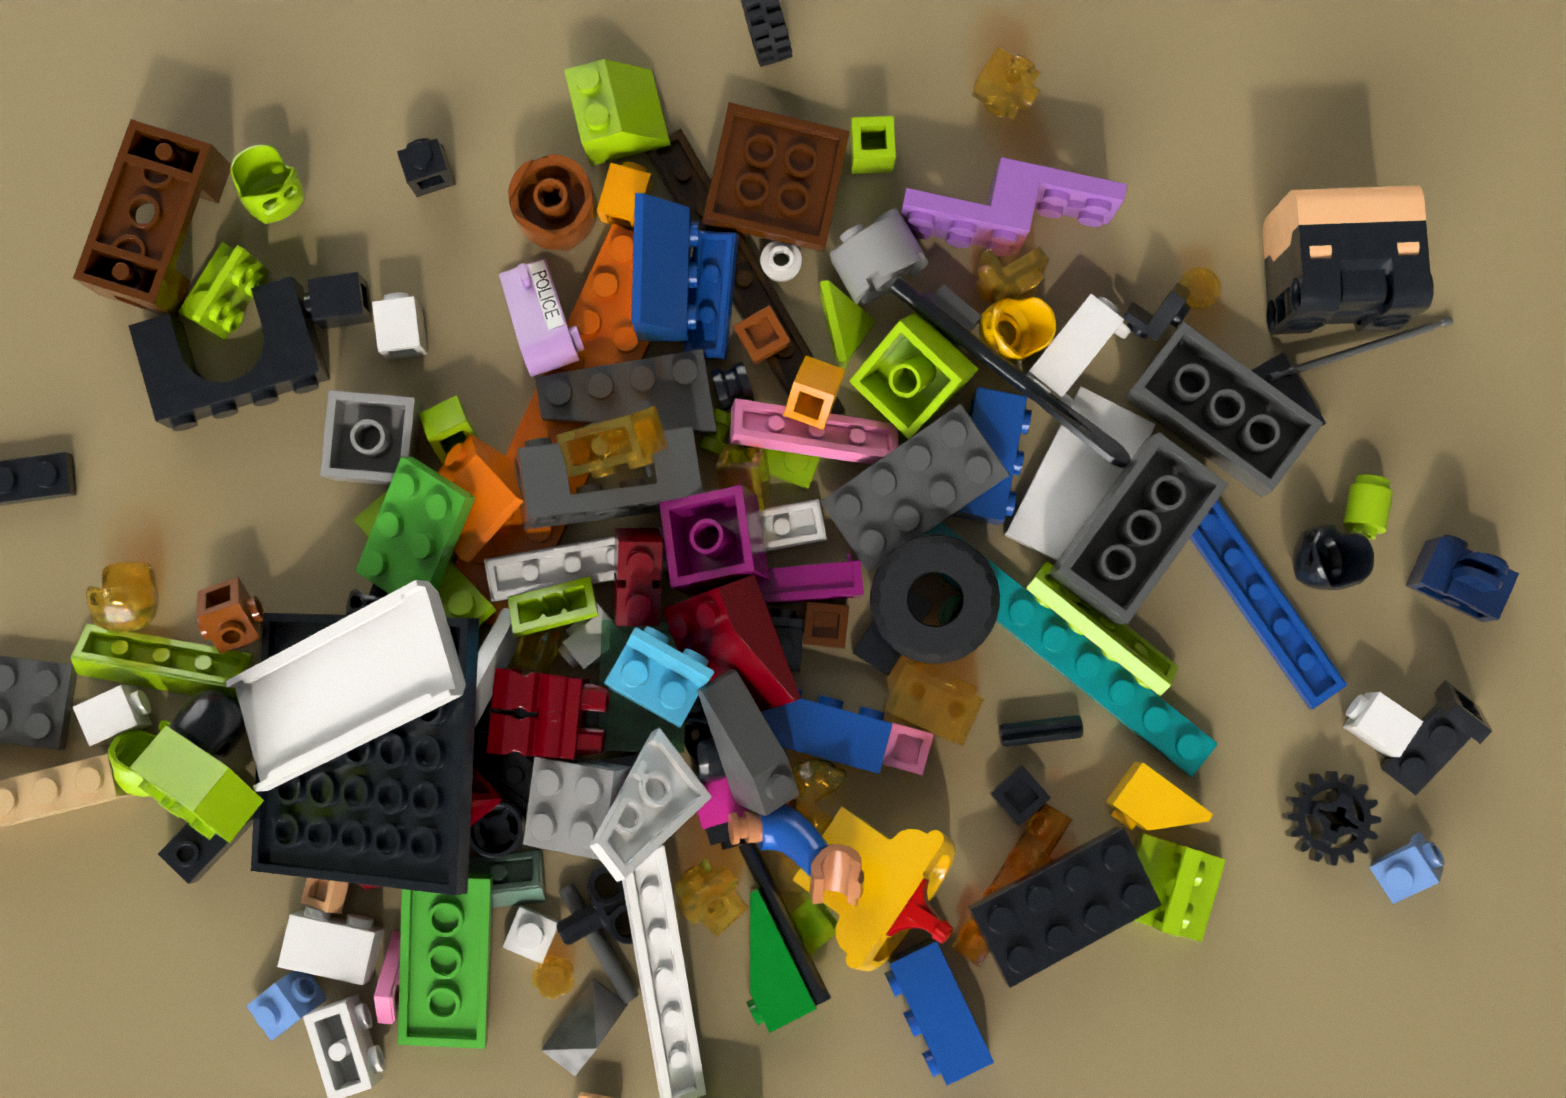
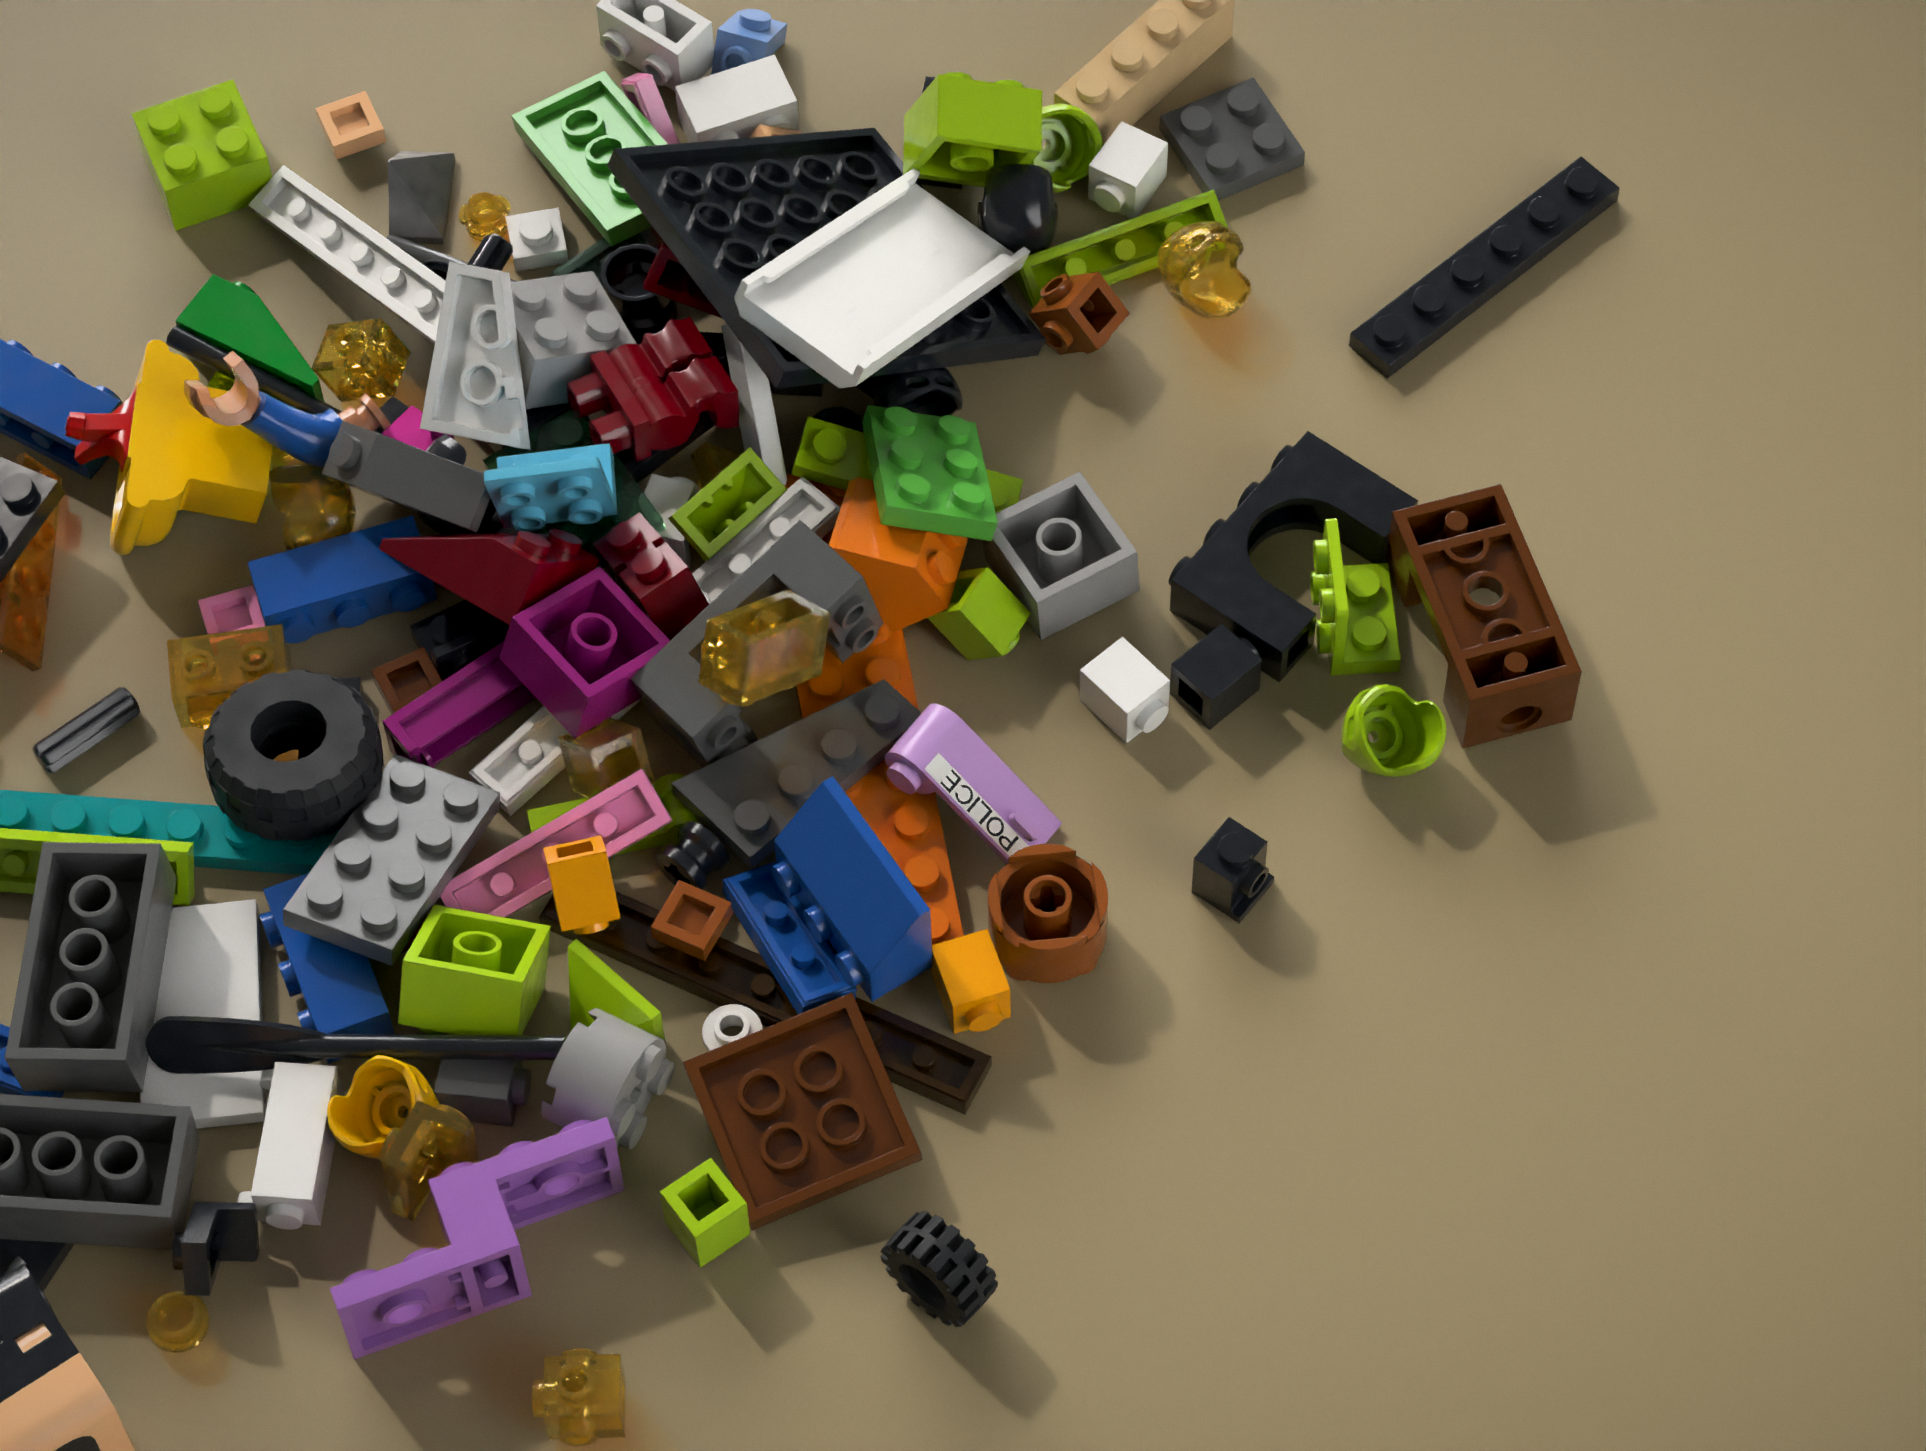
camera: 150 degrees right, 25 degrees down
(616, 110) = (1052, 1062): lime slope -> none
(1019, 795) = (71, 649): black plate -> none

